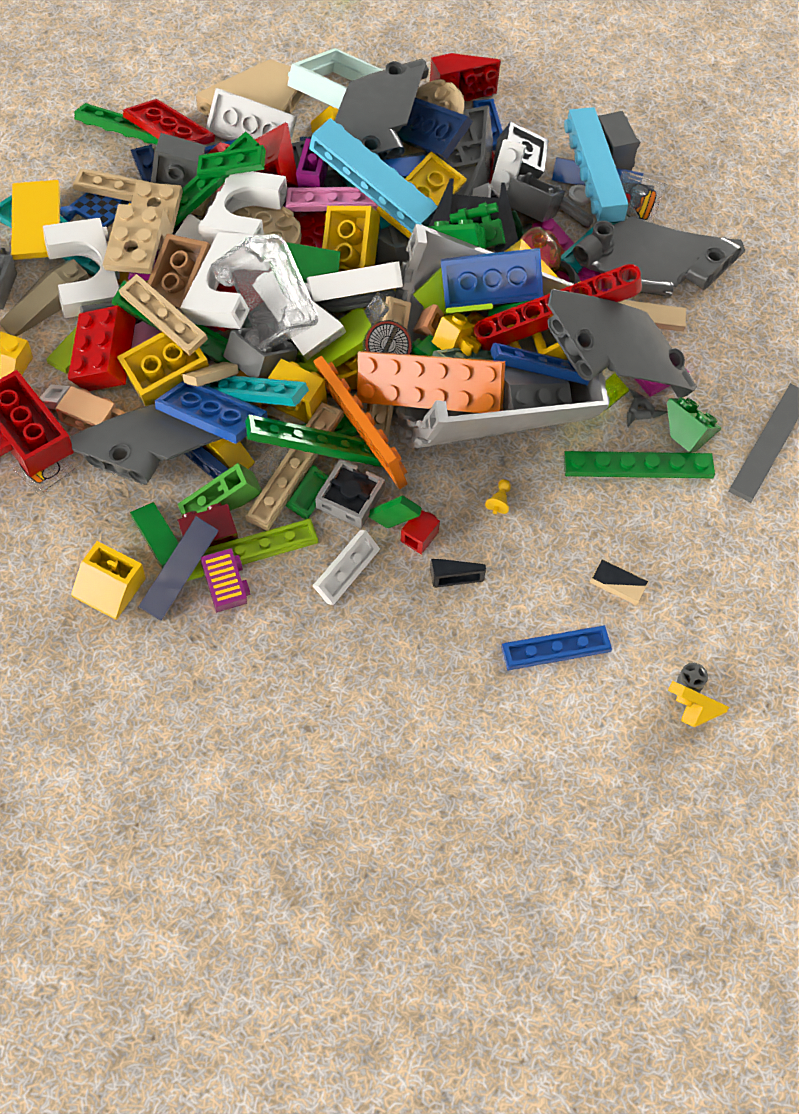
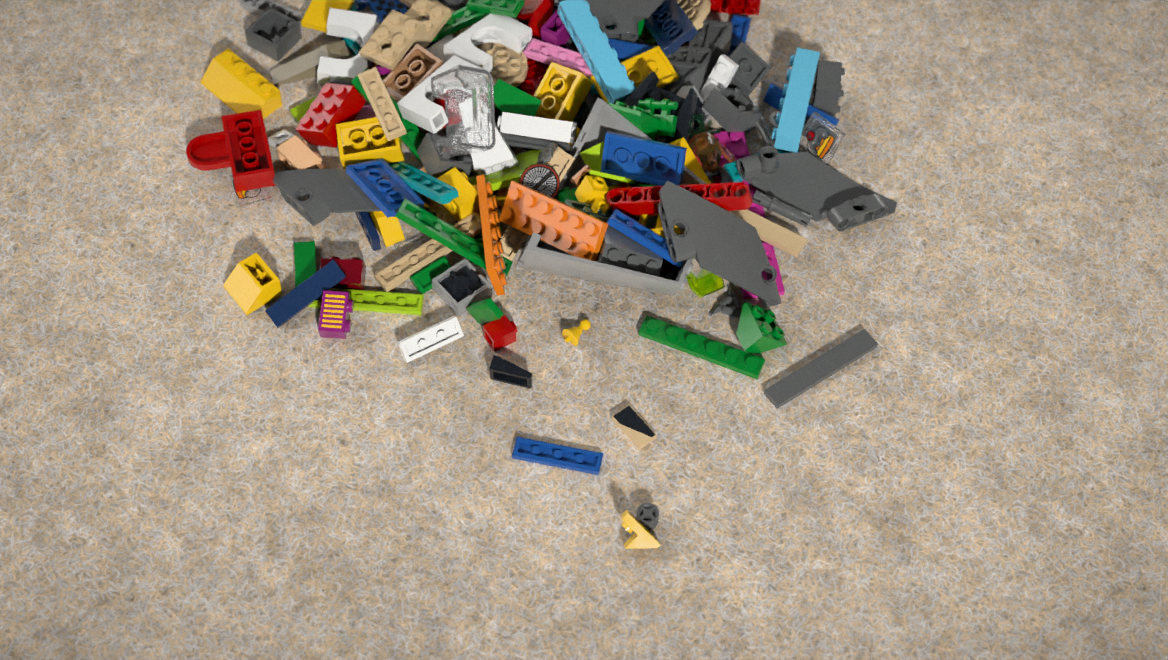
camera: 25 degrees right, 5 degrees down
(210, 374) = (403, 161): tan tile -> none
(232, 487) = (374, 251): bright green slope -> none

